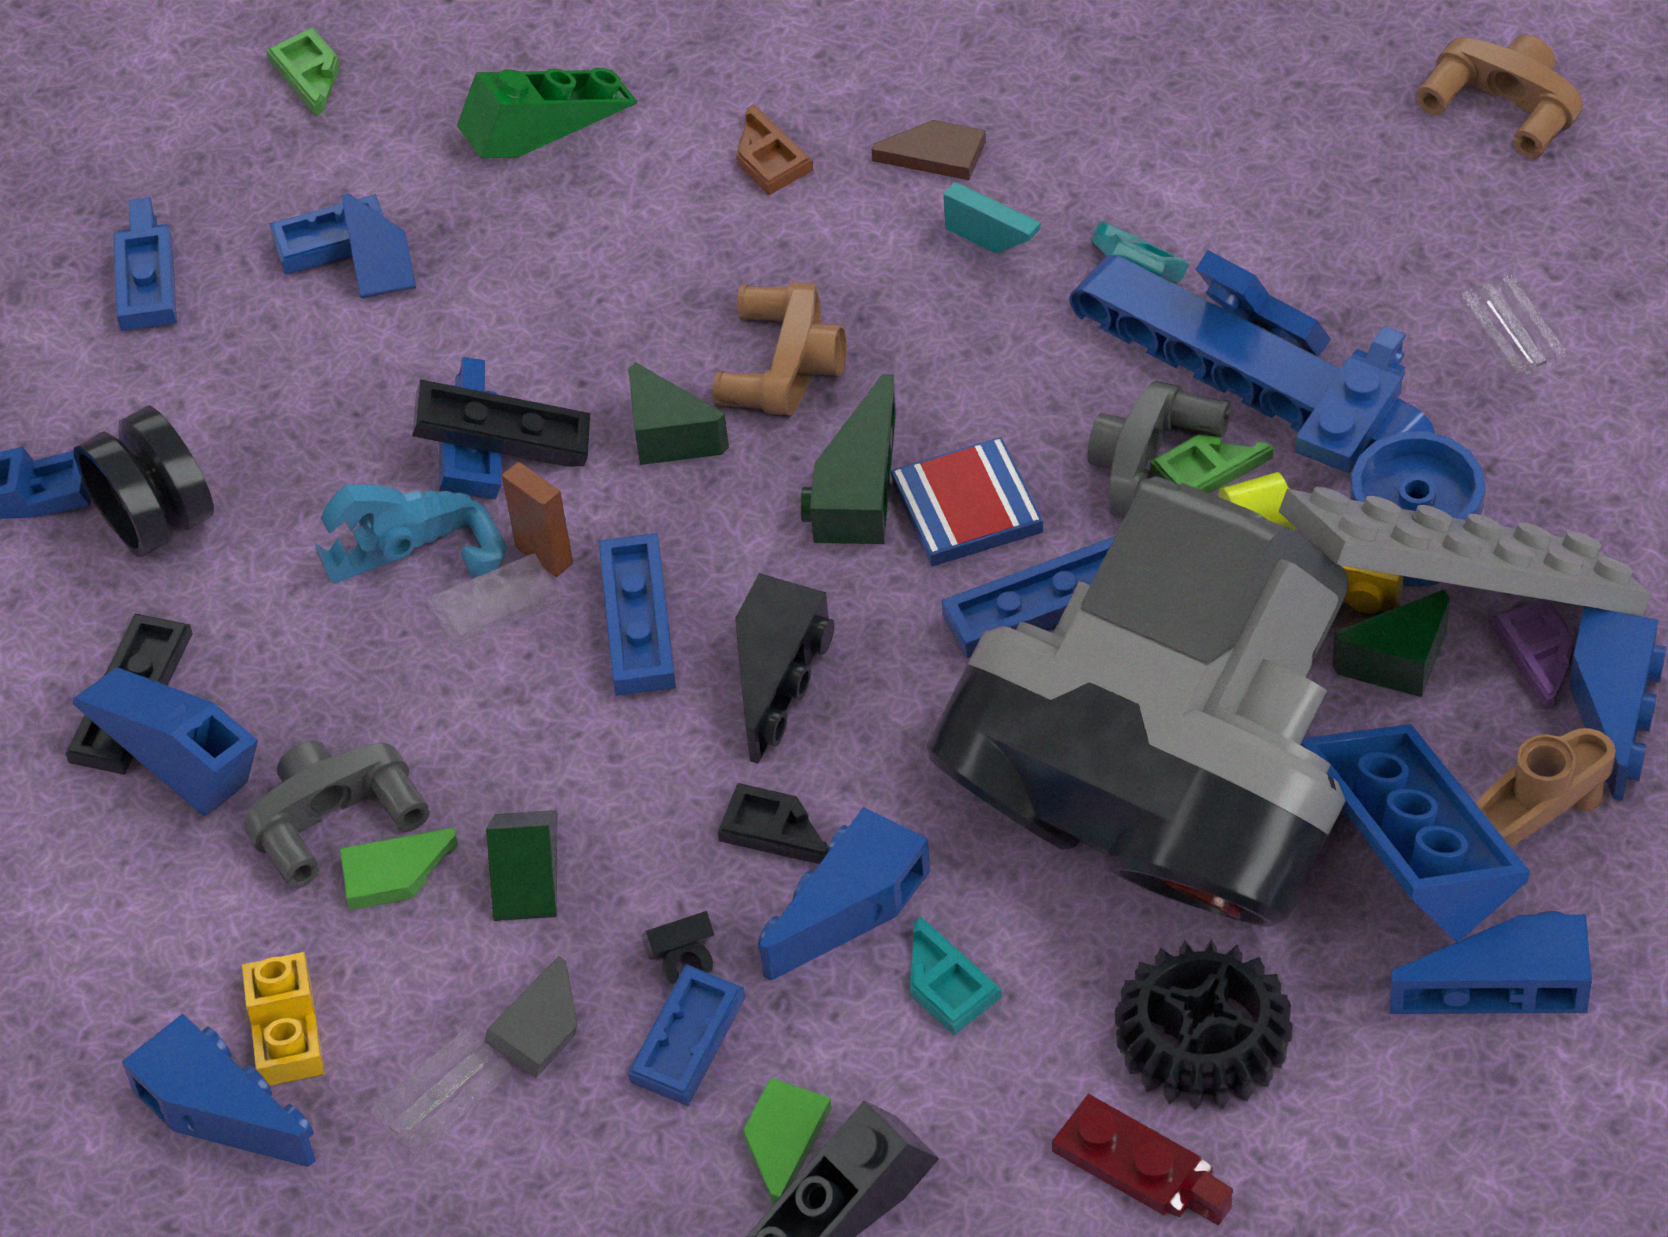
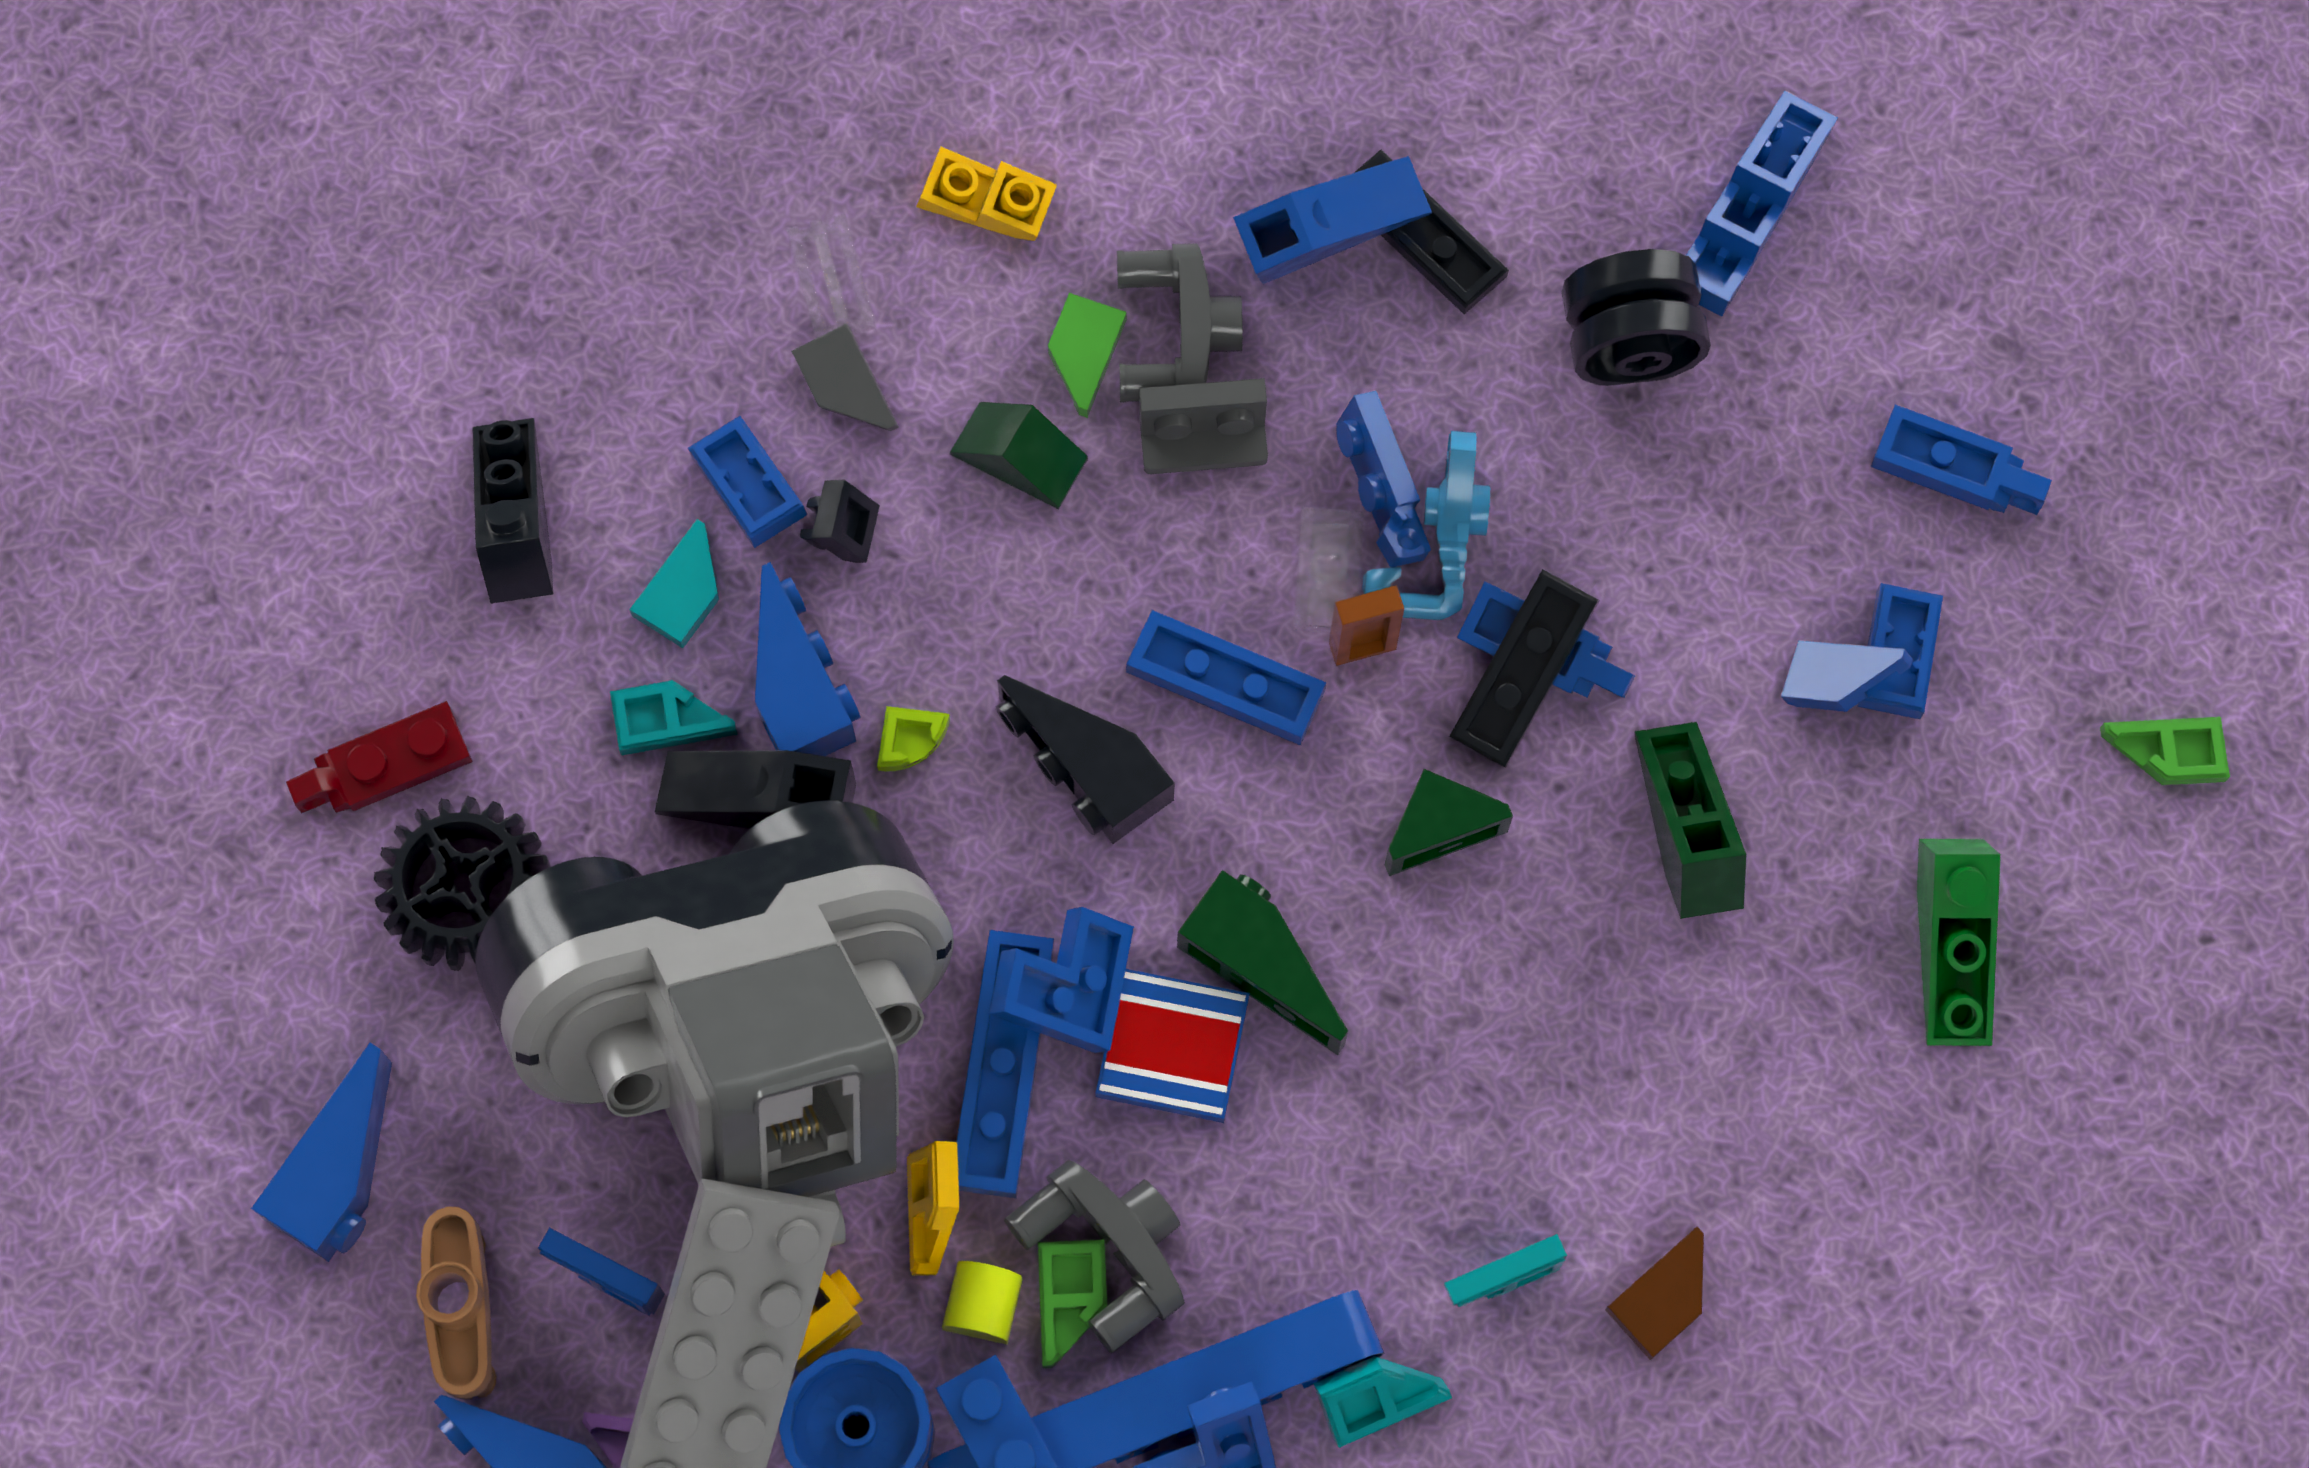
camera: 115 degrees right, 20 degrees up
(206, 1095) = (940, 99): blue slope -> none
(388, 594) = (1383, 479): none -> blue hinge
(419, 731) = (1203, 426): none -> dark grey bracket
(558, 280) = (1692, 821): none -> dark green slope
(769, 153) = (1764, 1128): dark orange tile -> none
(771, 824) = (919, 670): black tile -> none
(784, 1132) = (607, 507): bright green tile -> none
(802, 350) = (1457, 1000): medium nougat connector -> none
(818, 1034) = (681, 589): none -> teal tile
(837, 800) = (909, 737): none -> lime tile
(966, 857) = (748, 785): none -> black slope
(992, 558) = (1077, 994): none -> blue plate
(1422, 824) = (499, 1156): blue slope -> none
(1434, 720) = (602, 1272): none -> blue tile

